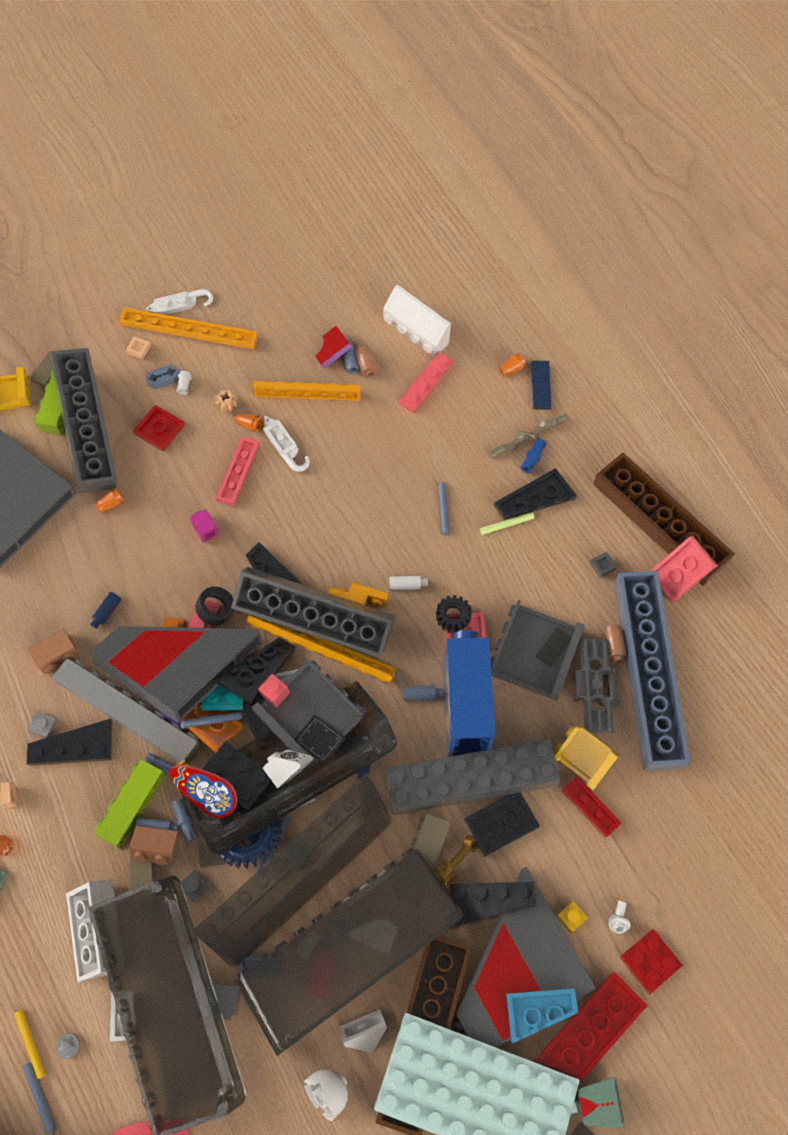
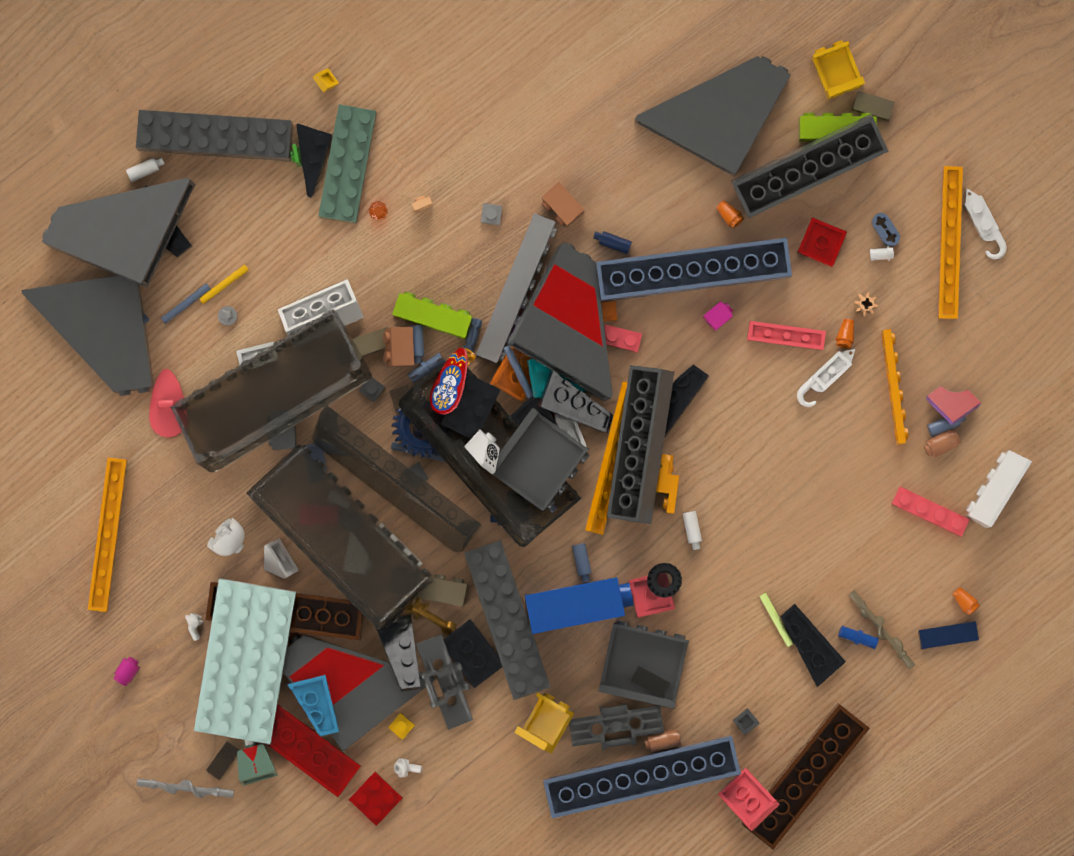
camera: 85 degrees right, 20 degrees up
(74, 746) = (478, 252): black wing -> none
(138, 347) = (915, 195): light nougat plate -> none
(152, 539) = (694, 269): none -> sand blue brick
(209, 617) = (625, 336): black tyre -> none
(274, 690) = (551, 425): coral brick -> none
(319, 739) = (516, 475): black sticker -> none
(443, 508) = (782, 553): sand blue bar -> none
(529, 851) = (449, 679): none -> dark grey piece
(591, 807) = (500, 733): red plate -> none

